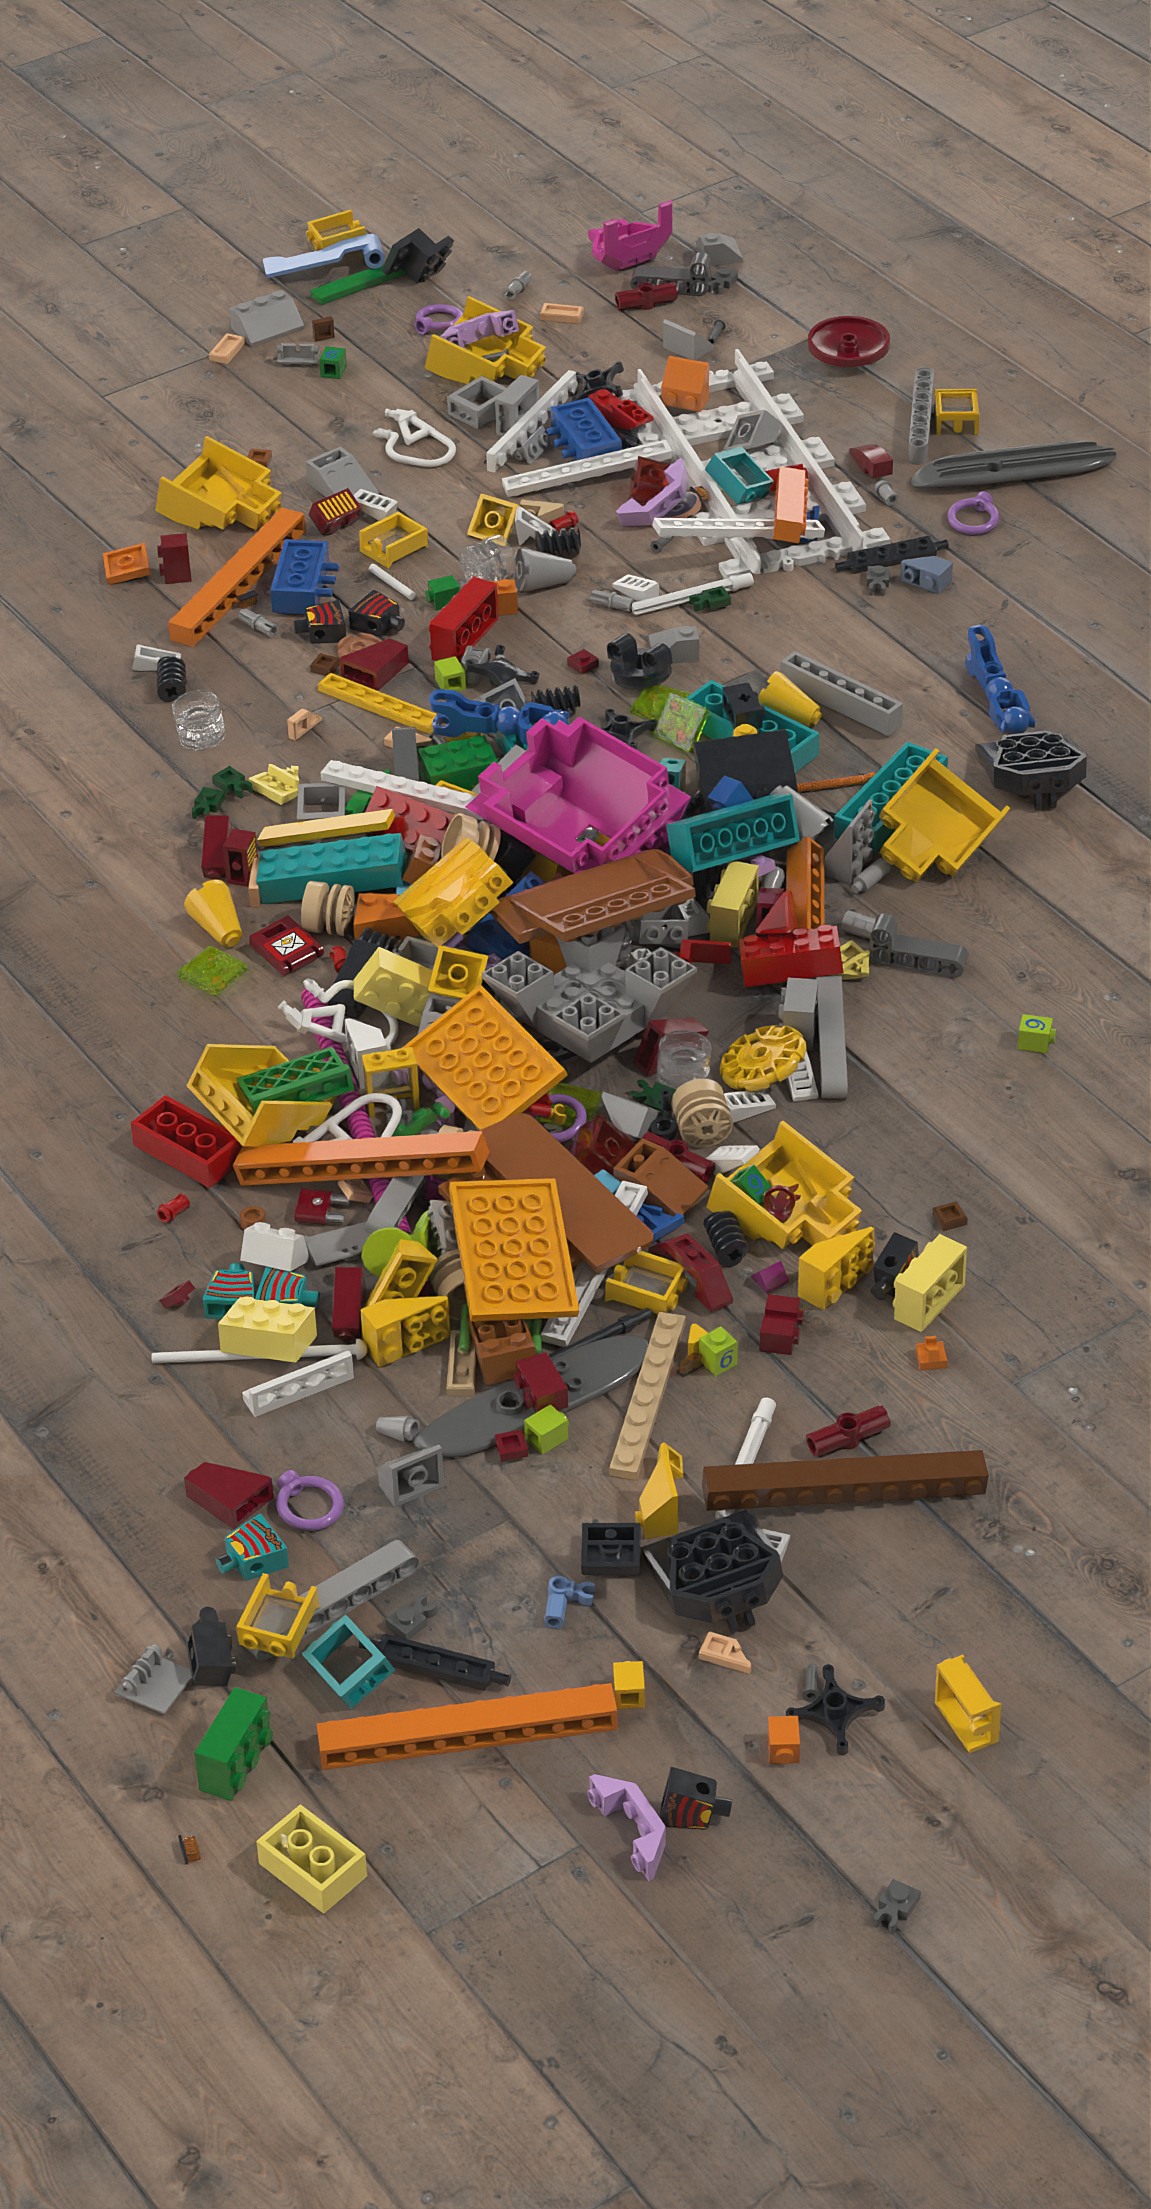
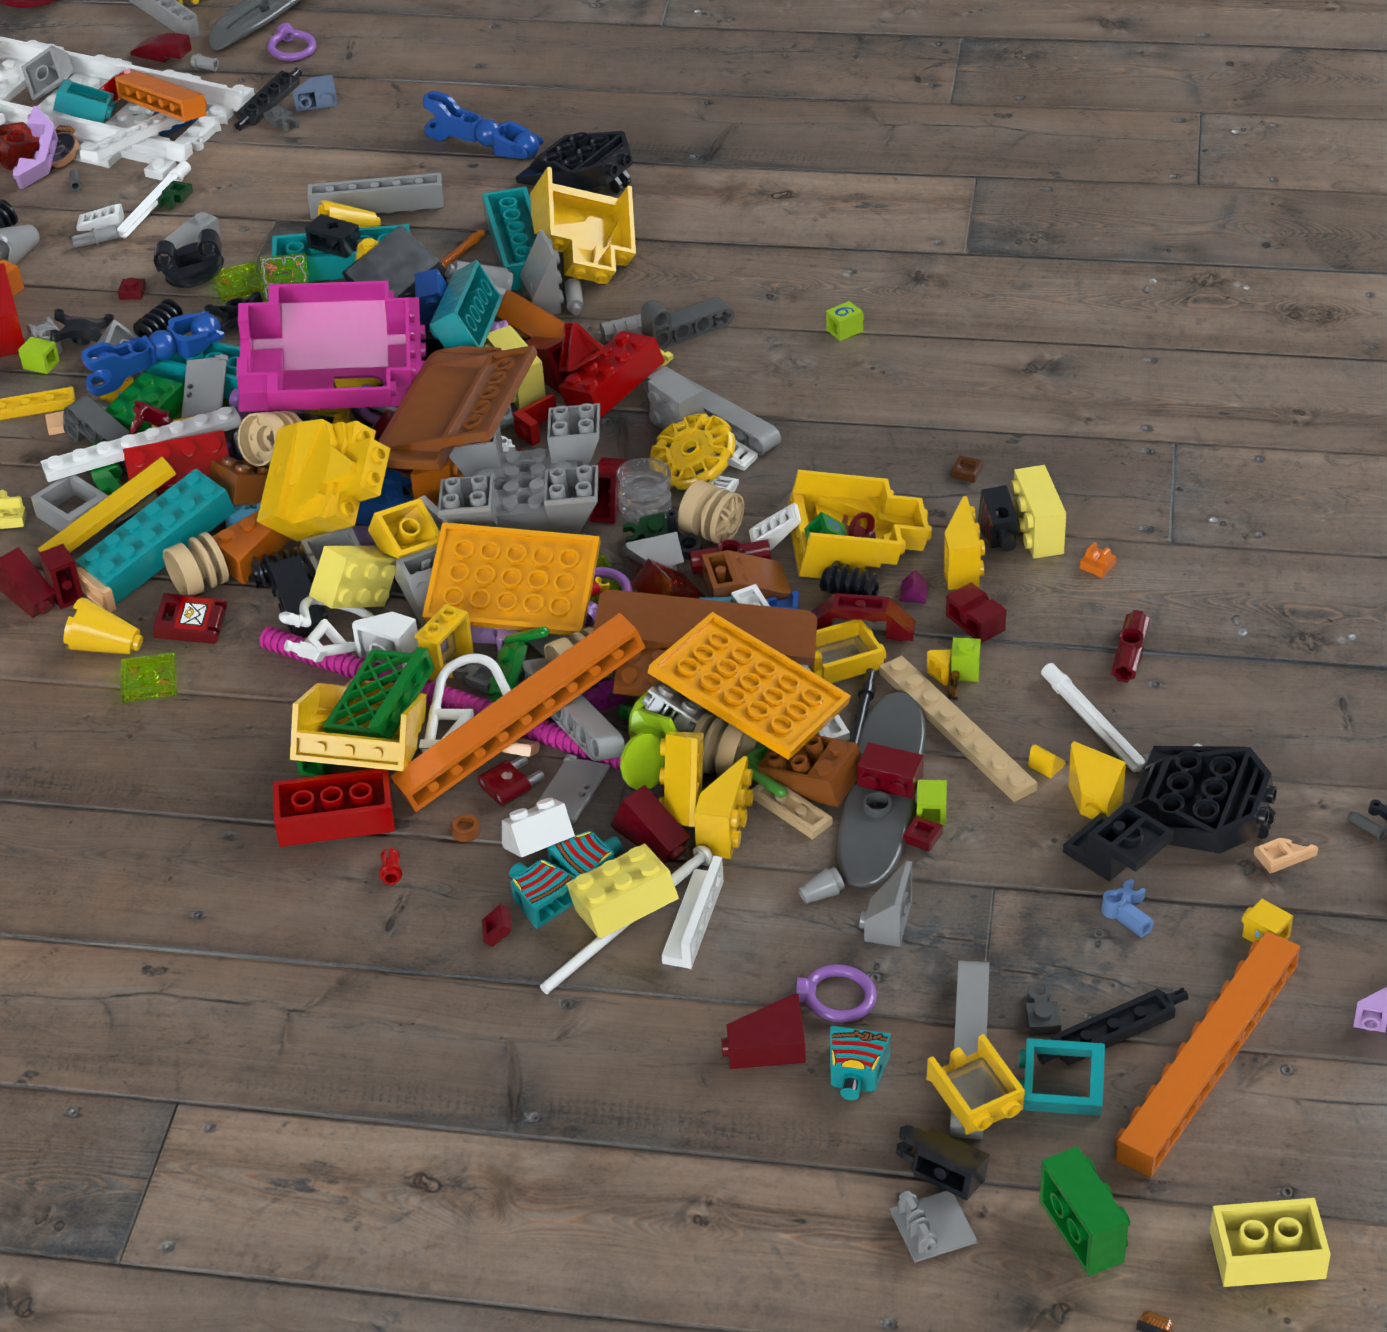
camera: 45 degrees left, 0 degrees up
(338, 958) = (257, 600): red pin -> none
(435, 769) = (150, 414): none -> dark red piece
(844, 1480) = (1186, 678): reddish brown brick -> none

